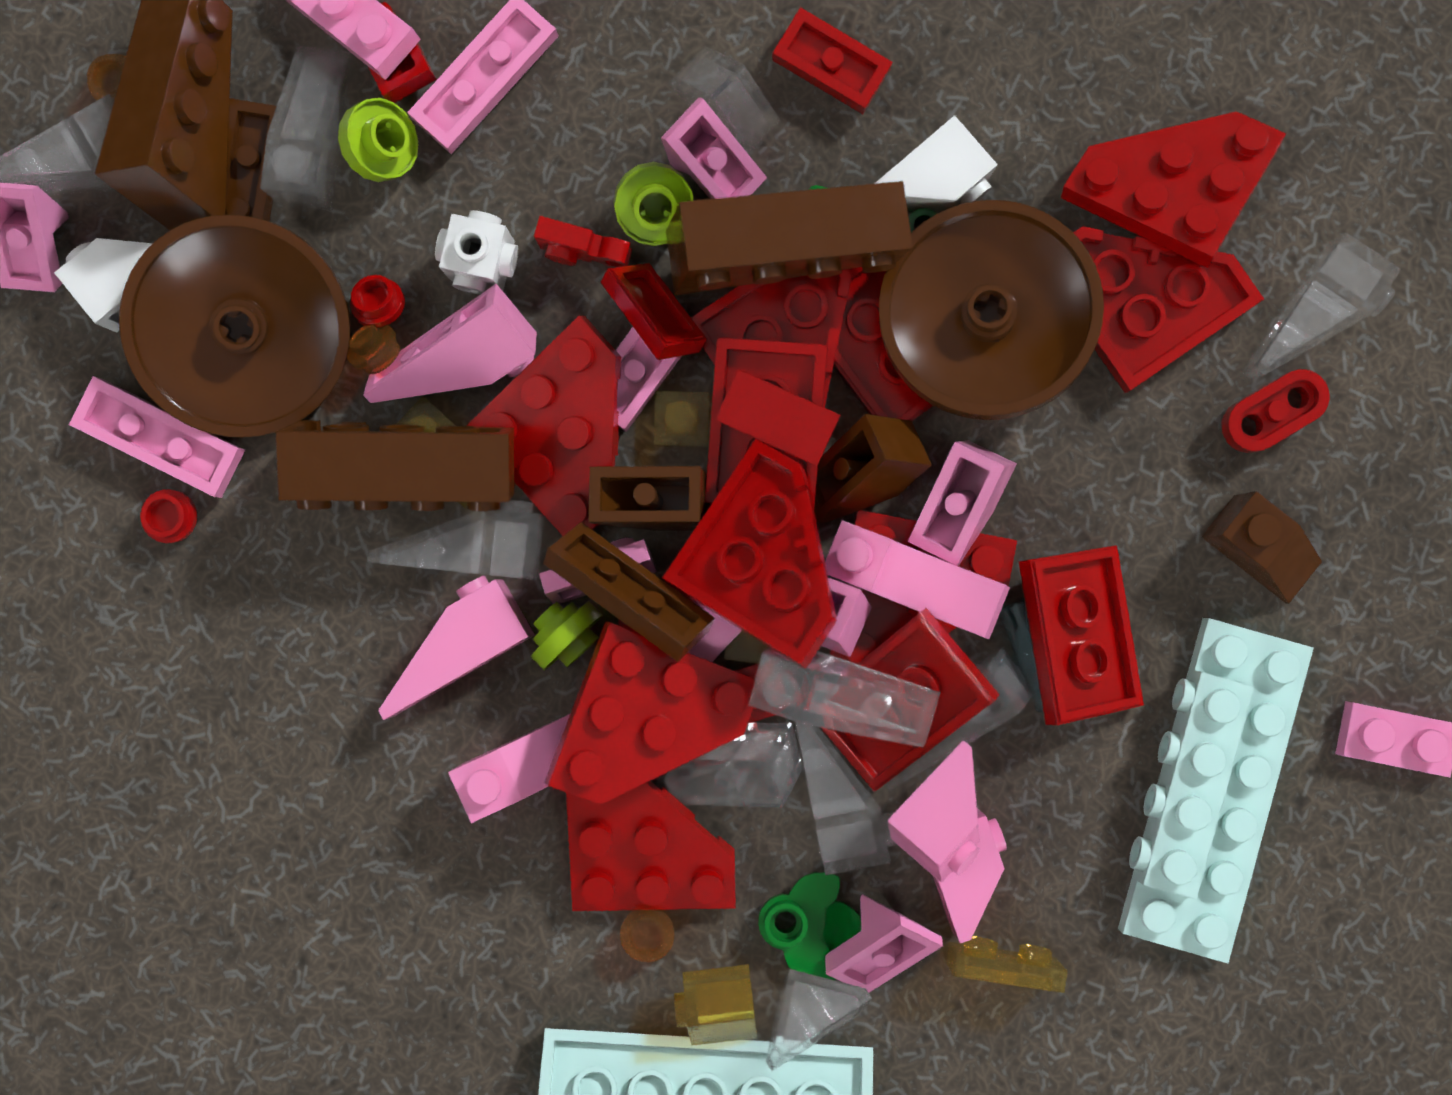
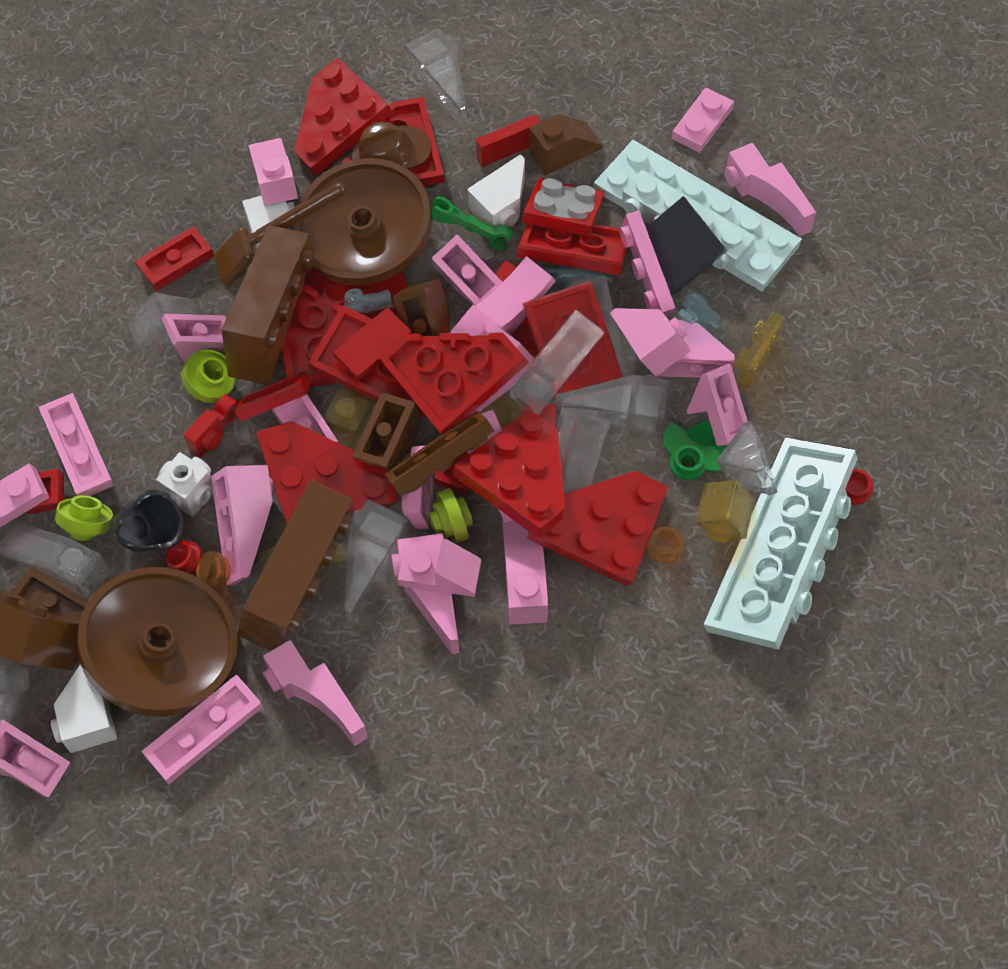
camera: 70 degrees left, 25 degrees down
(168, 516) = (259, 744): red plate -> none
(260, 560) = (315, 686): none -> bright pink slope
(393, 235) = (149, 522): none -> black hair
(464, 658) = (440, 570): none -> bright pink slope
(851, 367) = (367, 303): none -> clear light blue arm
(875, 144) = (238, 250): none -> reddish brown piece
(1028, 134) = (273, 172): none -> bright pink slope
(1029, 858) = (698, 312): none -> clear light blue plate
(1050, 440) = (446, 212): none -> green piece
(1076, 758) = (646, 264): none -> bright pink plate
(1124, 489) = (499, 195): none -> white slope
(1134, 792) = (683, 244): none -> black tile
(1142, 592) = (563, 206): none -> piece
(1145, 295) = (393, 143): none -> reddish brown piece
(1233, 459) = (504, 141): none -> red tile
(1272, 412) = (488, 116): red plate -> none
(1316, 853) = (771, 185): none -> bright pink slope

